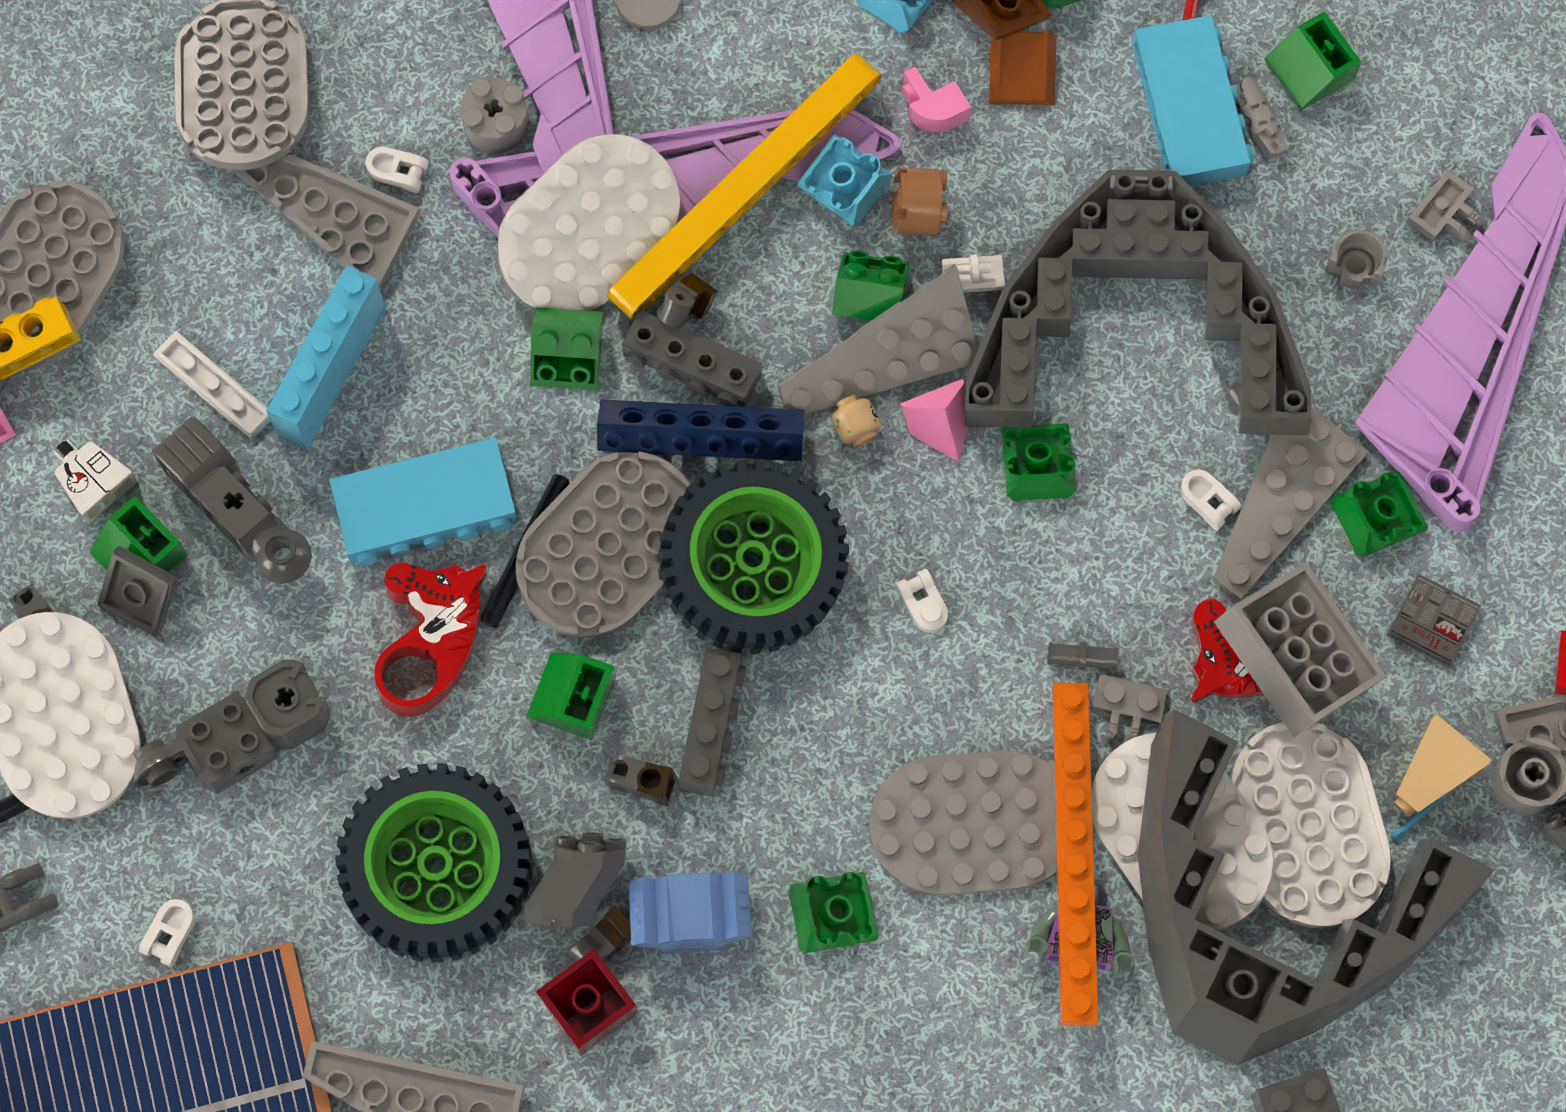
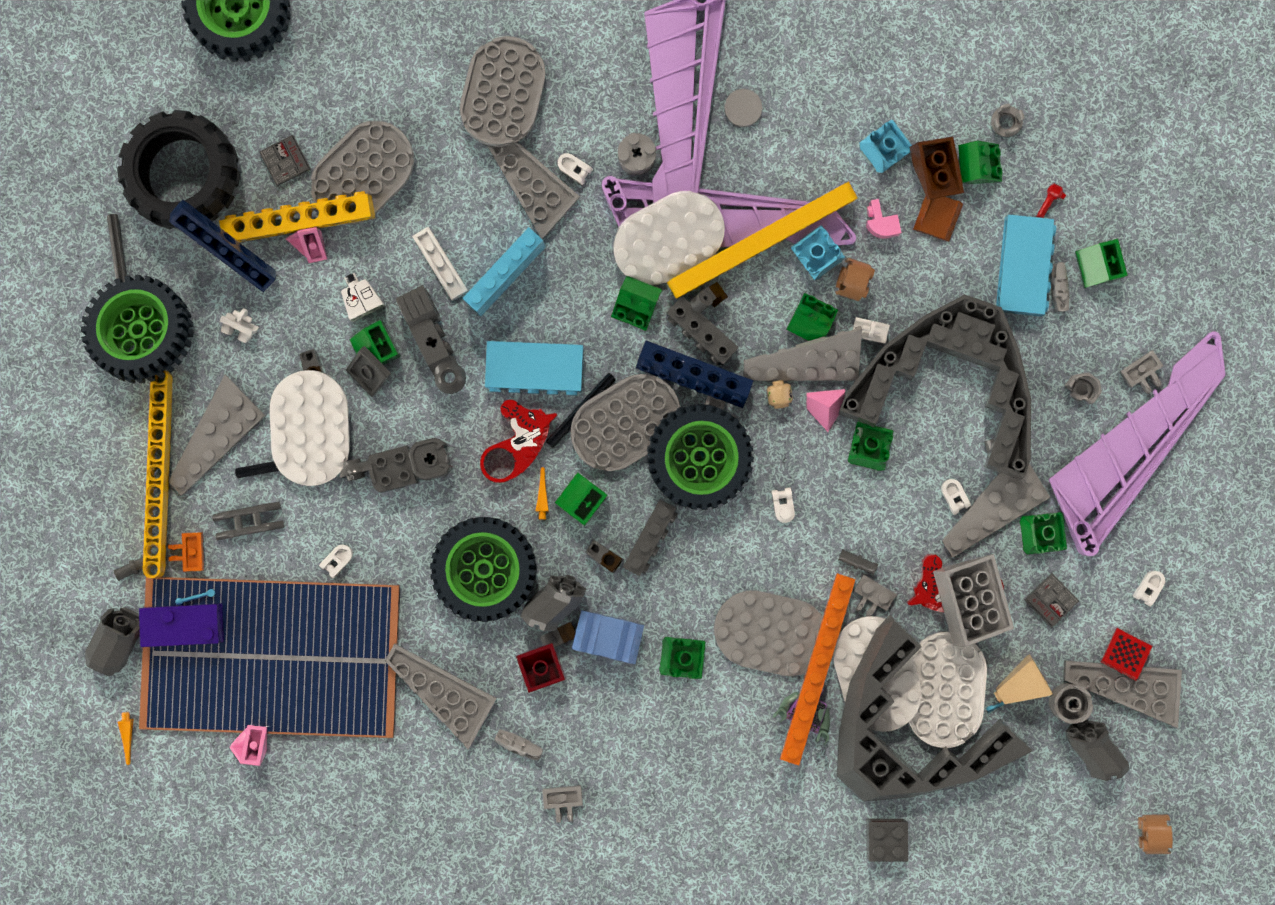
camera: 20 degrees right, 15 degrees up
(505, 724) = (542, 503): none -> light orange piece

